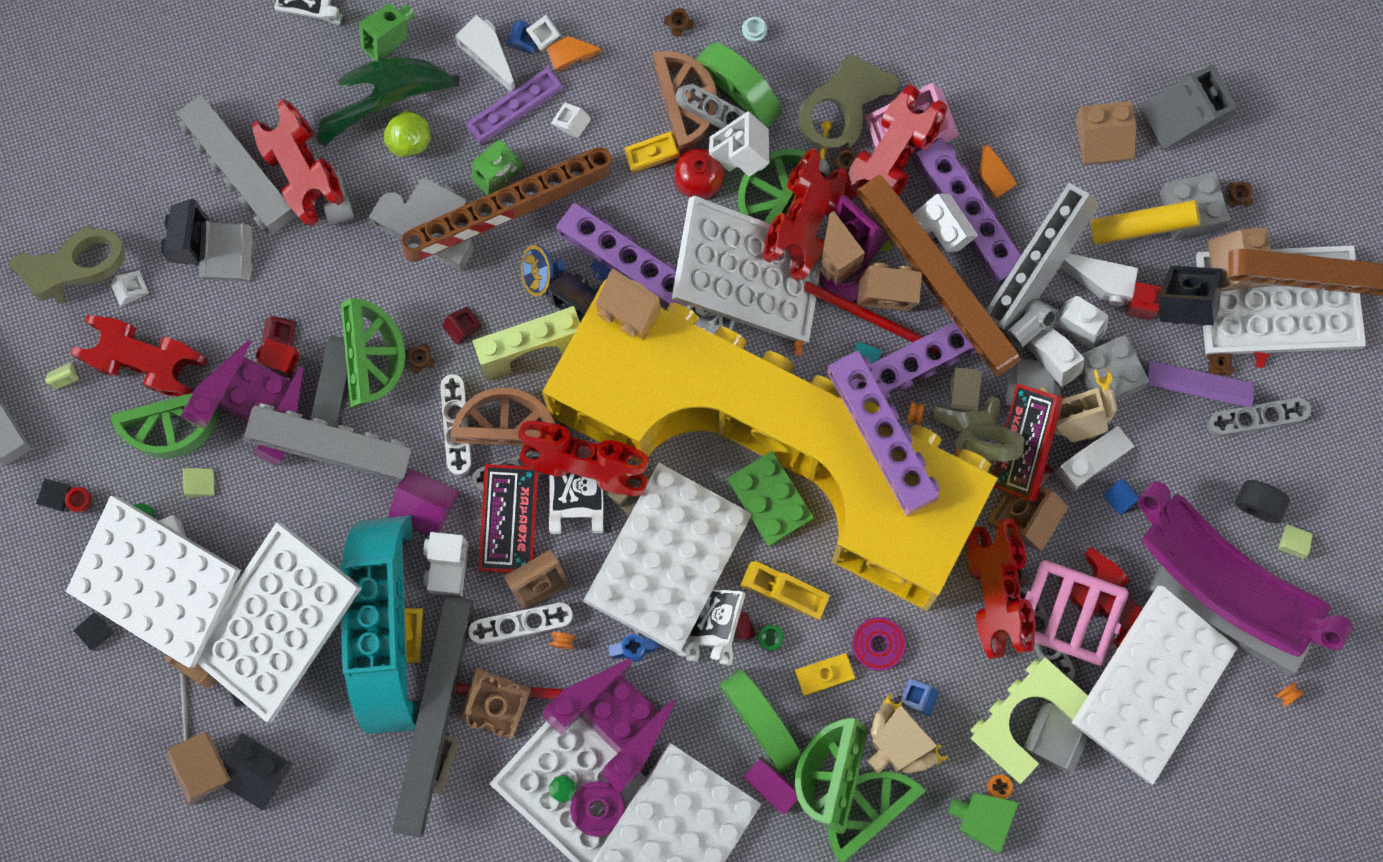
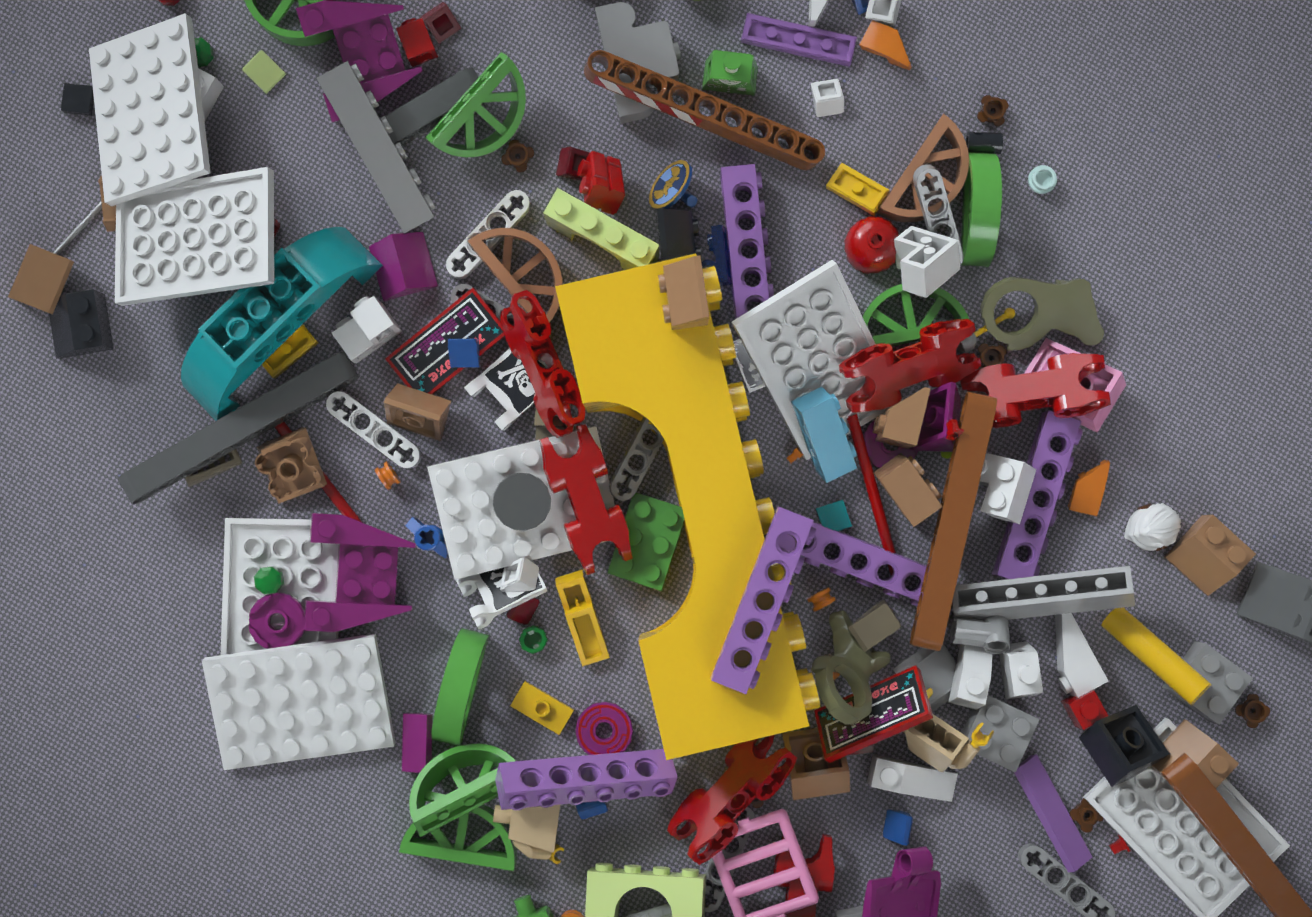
camera: 50 degrees right, 10 degrees up
(493, 312) = (602, 182): none -> red brick
(525, 509) = (464, 352): none -> blue slope
(666, 555) = (521, 501): none -> dark grey tile
(696, 43) = (984, 142): none -> black piece
(706, 445) = (647, 453): none -> light grey beam
(717, 605) = (519, 576): none -> white slope
(722, 517) = (578, 478): none -> red piece
(802, 311) = (825, 434): none -> medium azure brick
(876, 220) = (953, 430): none -> red piece
(902, 678) = (635, 773): none -> medium lavender brick
(1056, 154) = (1153, 527): none -> white hair

